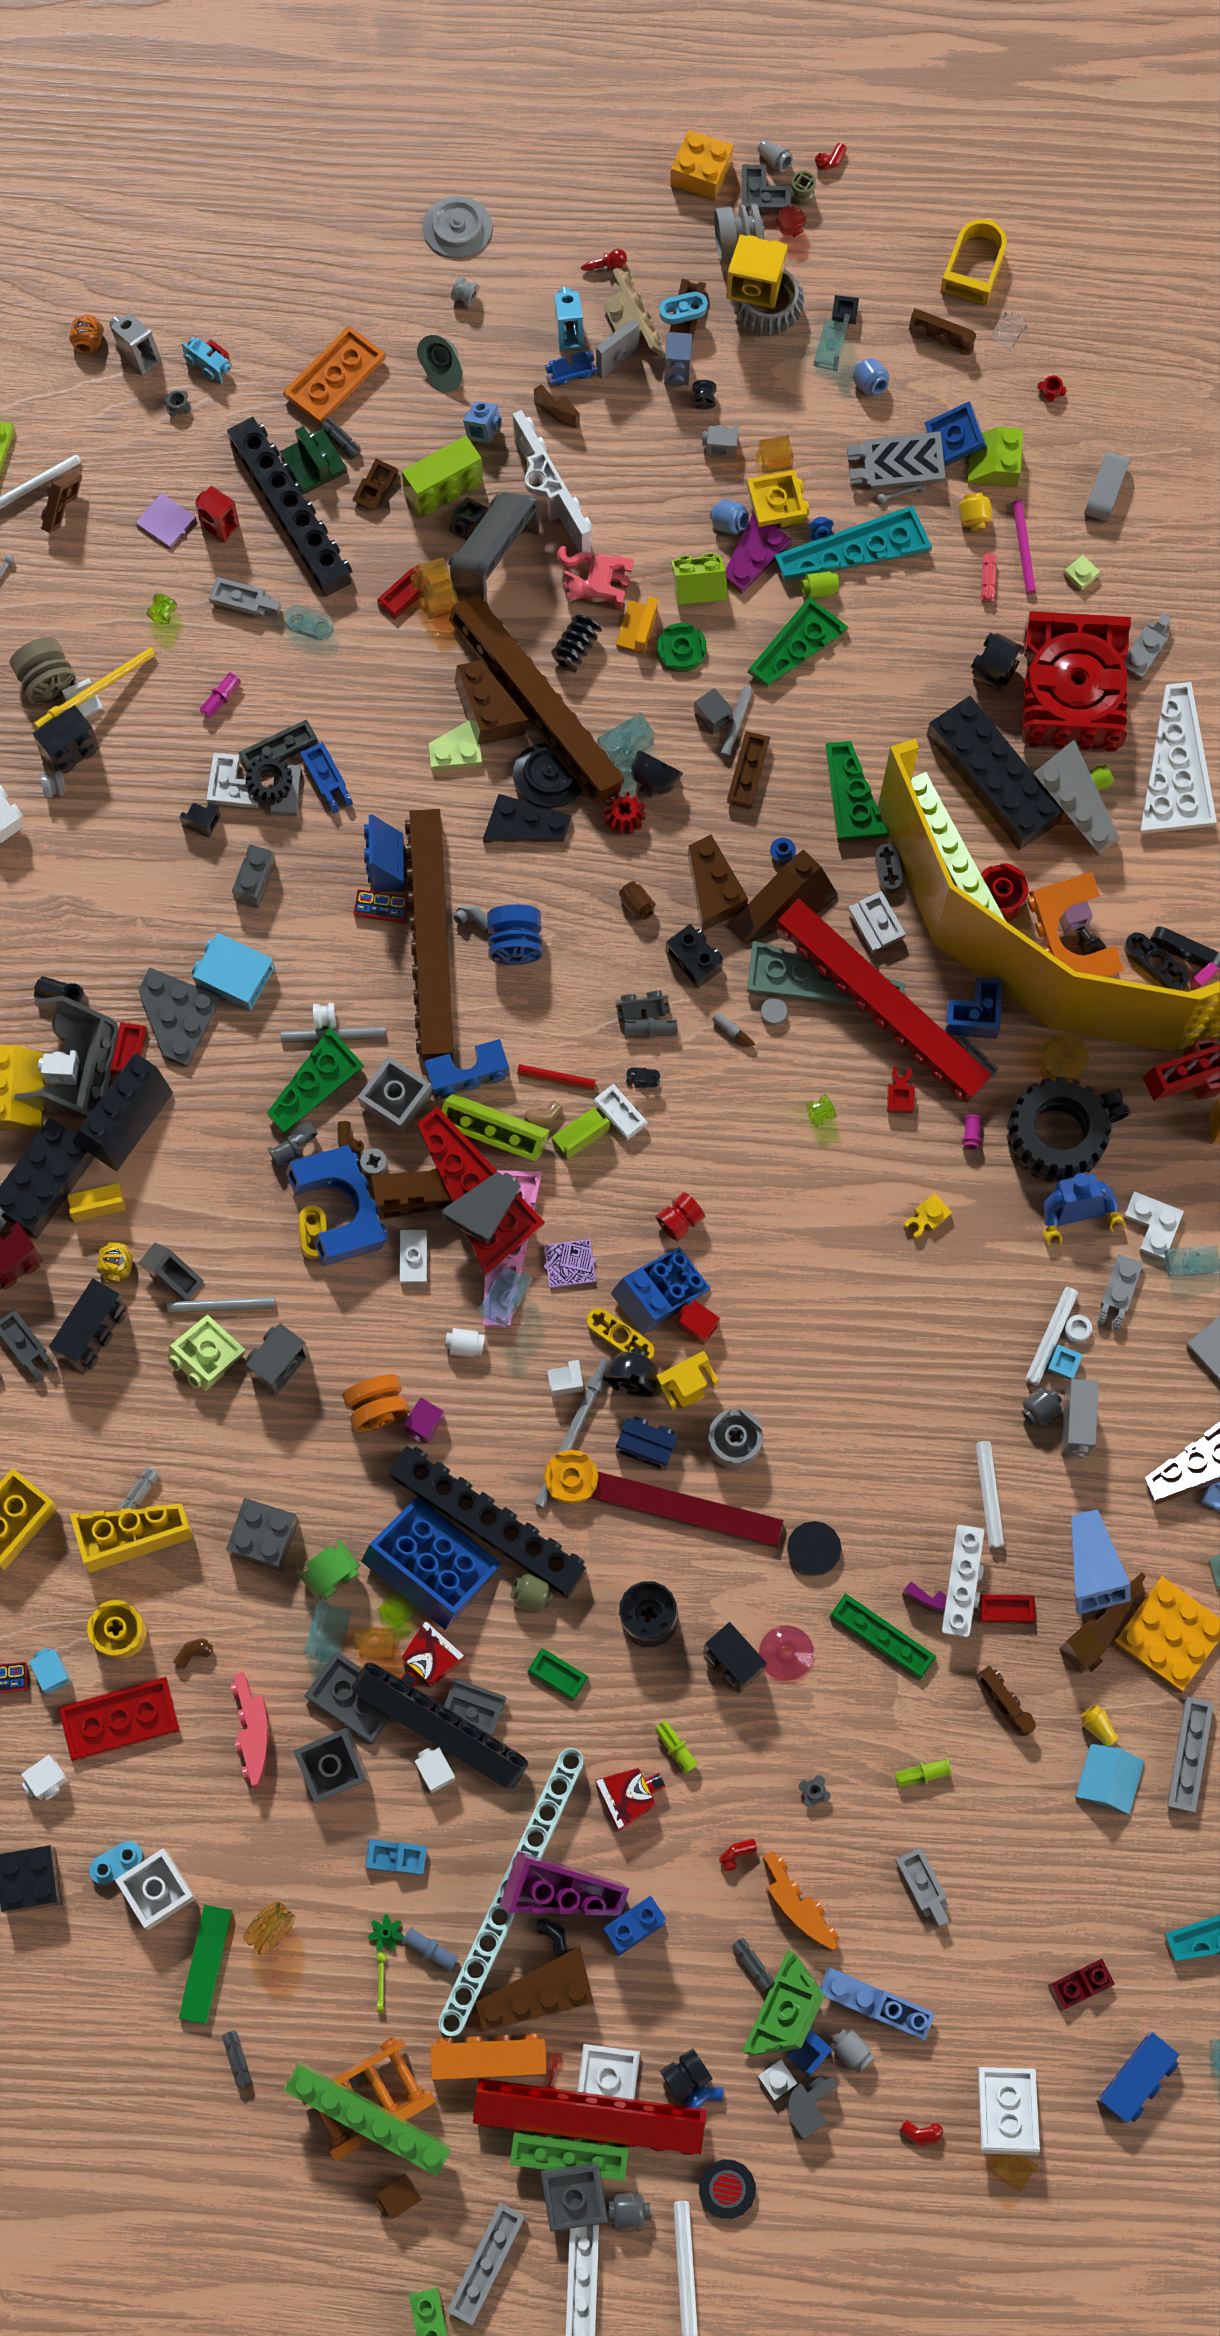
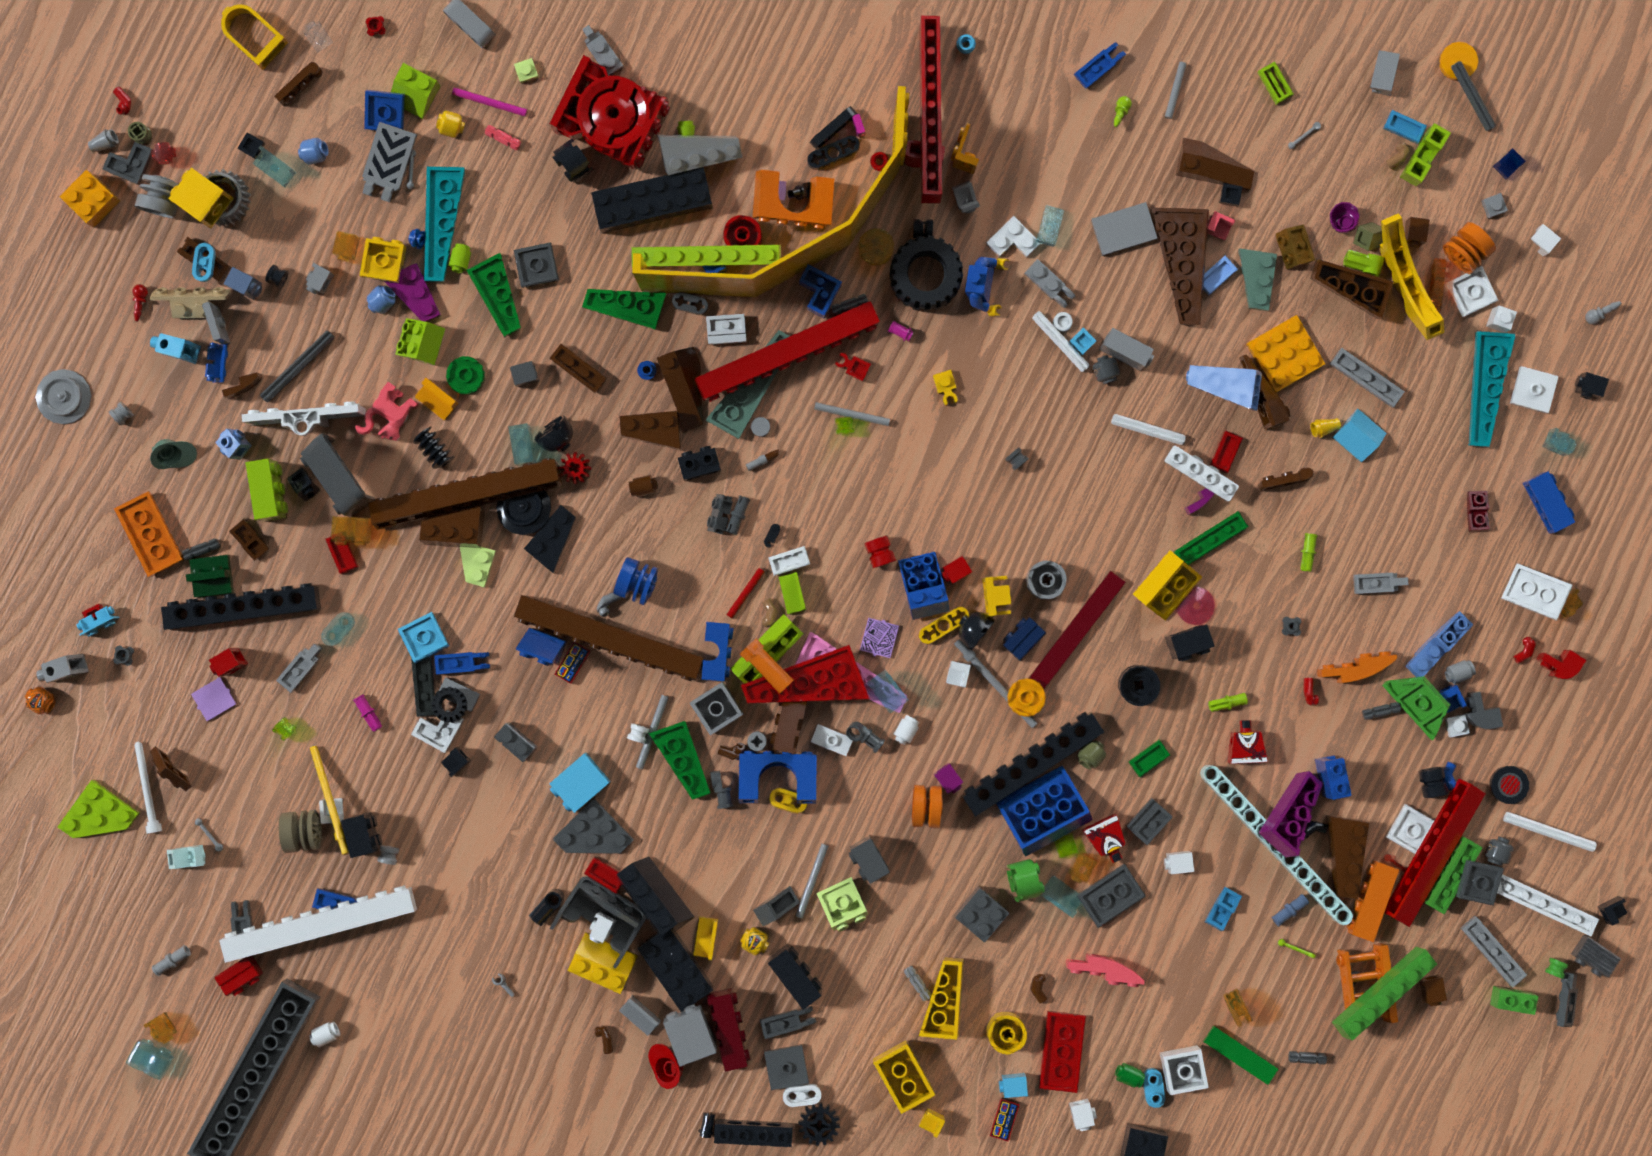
camera: 70 degrees left, 15 degrees up
(120, 1821) = (1129, 1075): none -> green brick
(331, 1765) = (1151, 928): dark grey brick -> none
(339, 722) = (423, 637): none -> medium azure tile
(392, 1934) = (1263, 933): green plant -> none
(434, 1294) = (866, 736): none -> dark grey connector
(440, 1725) = (1154, 849): black beam -> none
(474, 1125) = (766, 665): none -> orange piece
(483, 1207) = (825, 681): dark grey slope -> none
(607, 458) = (301, 362): none -> dark grey axle
(736, 722) = (538, 361): light grey bar -> none
(796, 1600) = (1167, 585): none -> yellow slope
(814, 1548) = (1136, 558): black tile -> none
(840, 1116) = (850, 413): none -> light grey bar
(852, 673) = (536, 265): none -> dark grey plate
(875, 1340) = (1016, 458): none -> dark grey wheel
(922, 2199) = (1565, 667): none -> red brick
(1178, 779) = (706, 74): white wing -> none
(1178, 1141) = (965, 197): none -> light grey bracket

